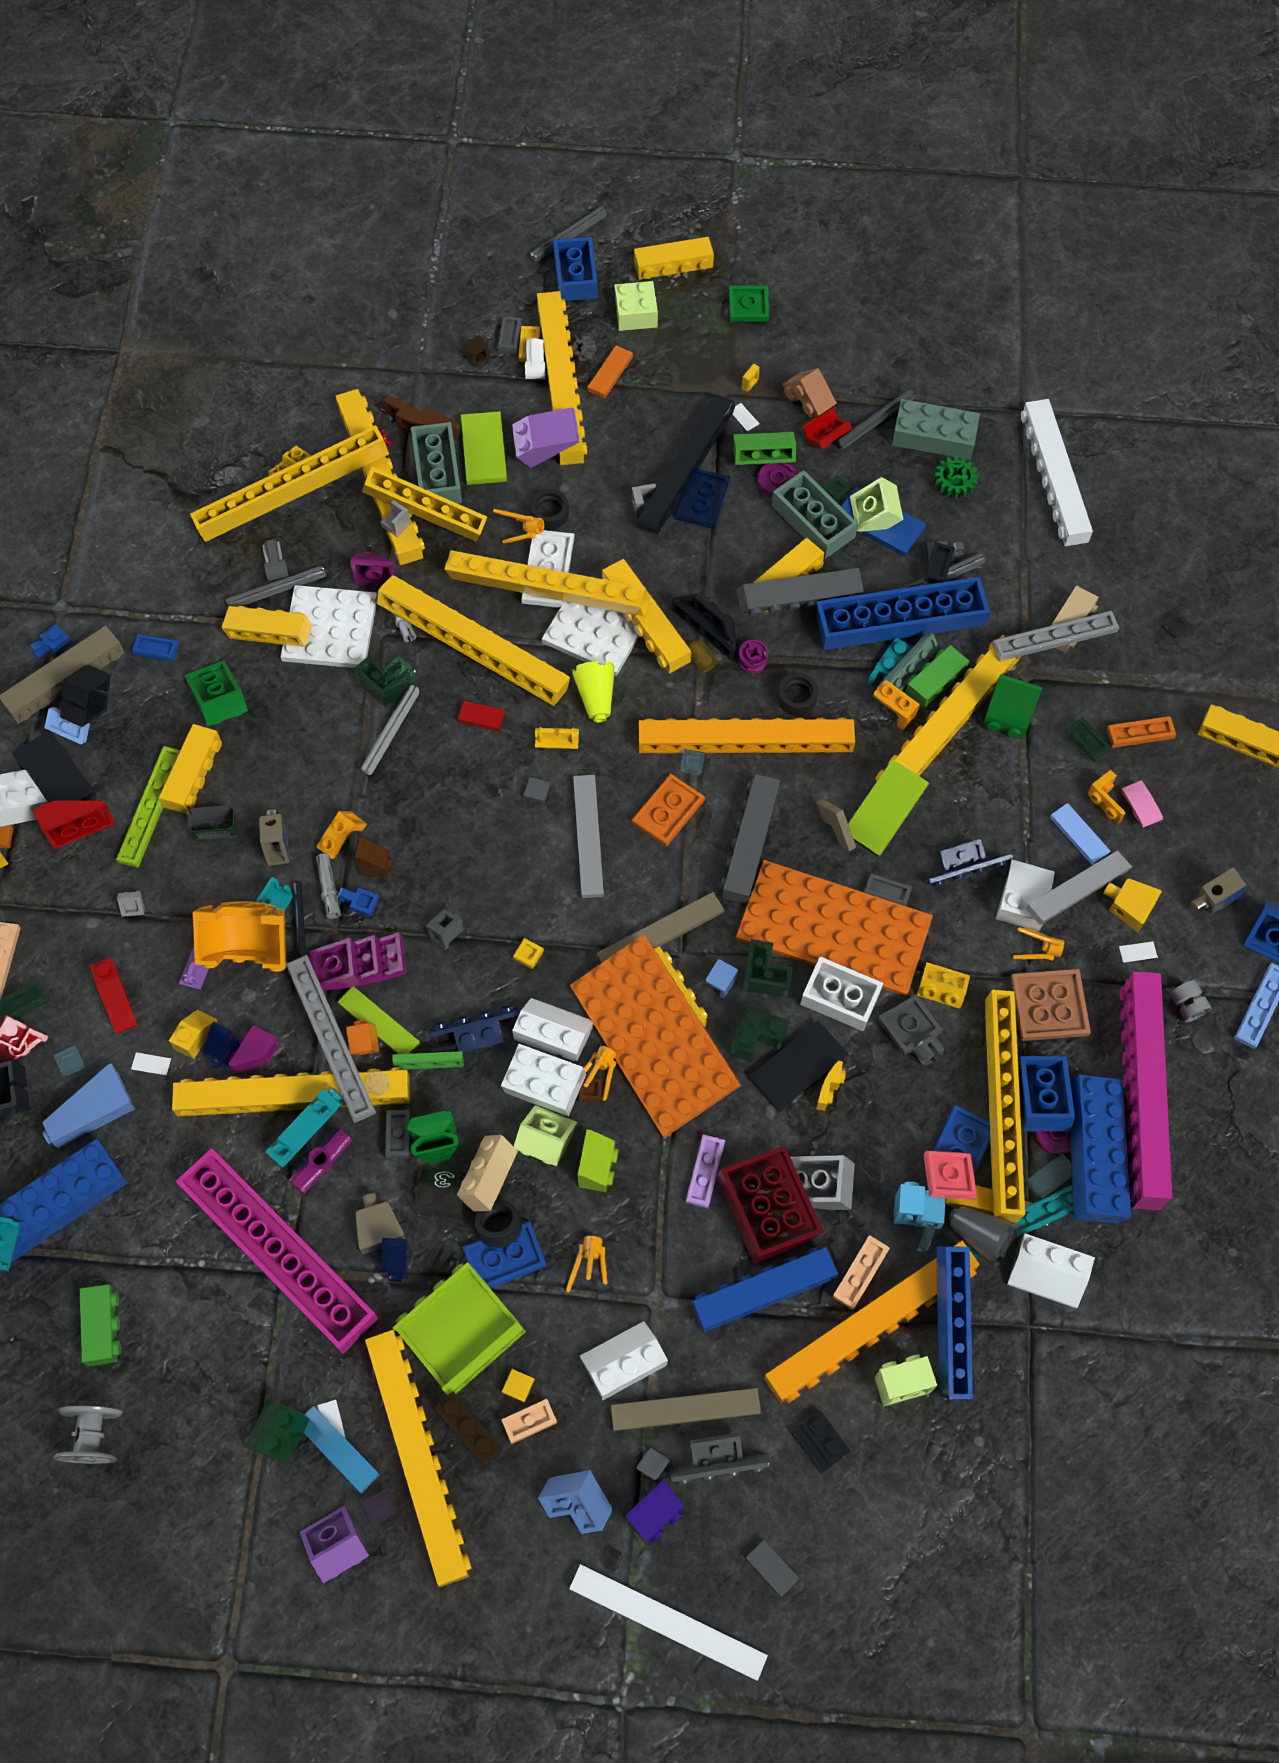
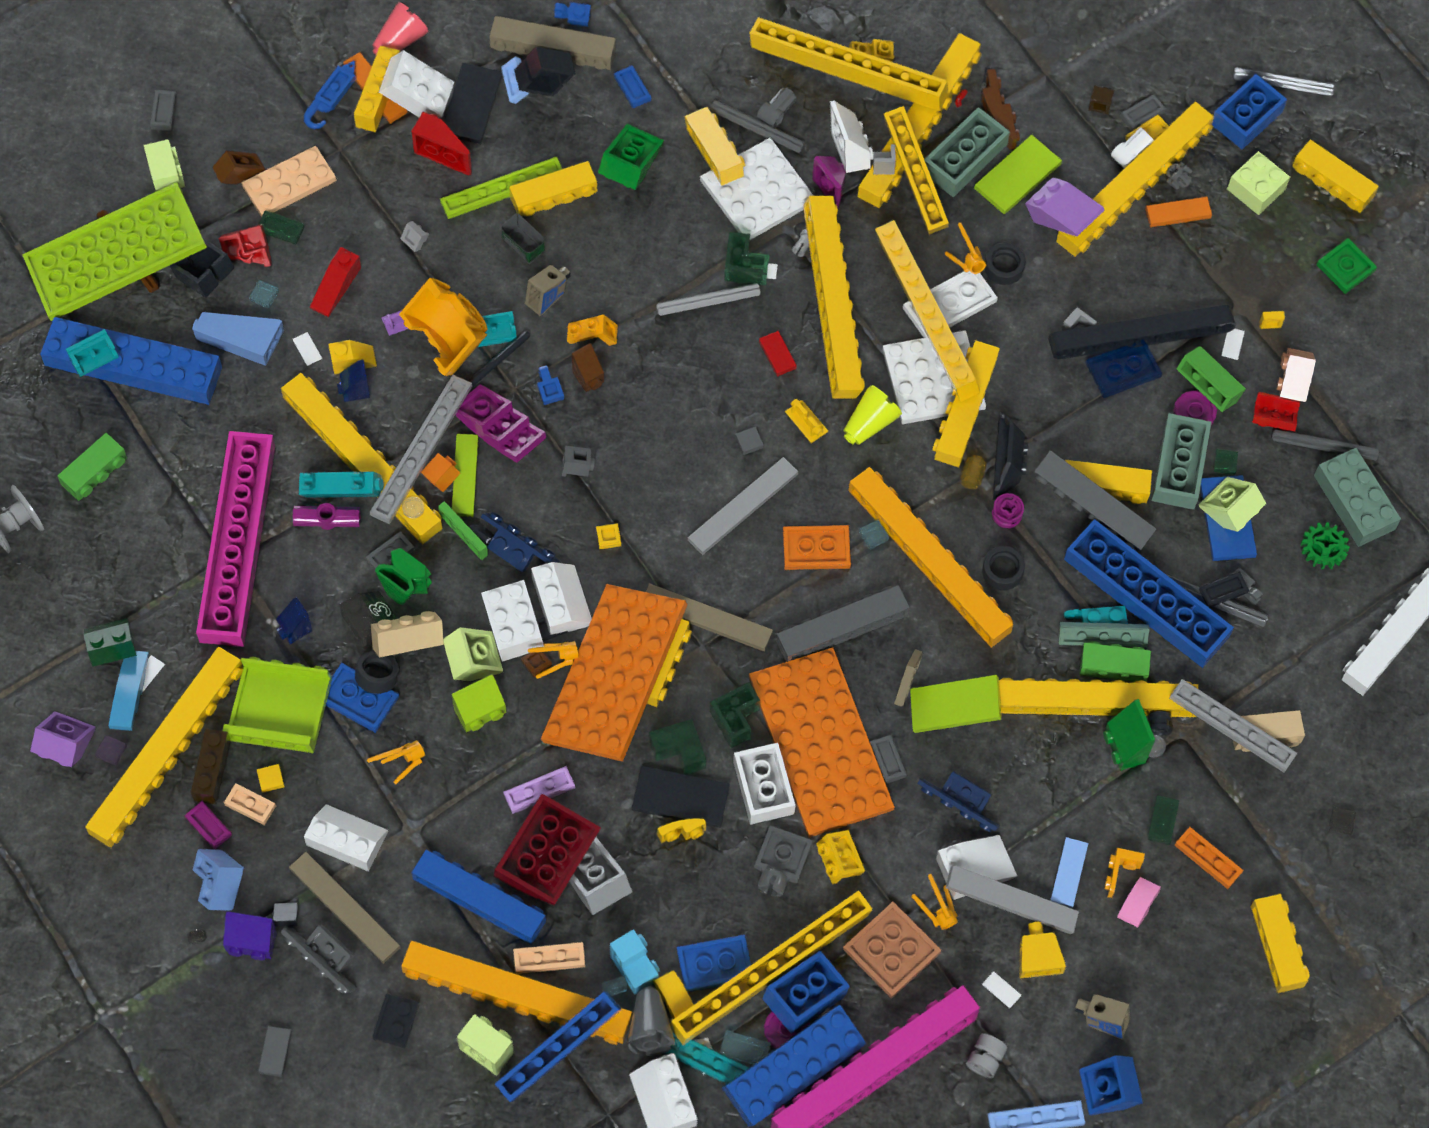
camera: 50 degrees right, 0 degrees up
(255, 1050) = (371, 407): magenta slope -> none
(329, 892) = (542, 356): light grey pin -> none
(353, 531) = (849, 139): none -> white slope
(375, 1223) = (311, 590): dark tan torso -> none
(518, 1472) = (208, 825): none -> magenta tile
(668, 1622) = (181, 1007): white tile -> none
(722, 977) = (703, 687): medium blue panel -> none
(897, 701) = (1059, 647): light orange bracket -> none
(950, 1175) = (677, 966): coral tile -> none

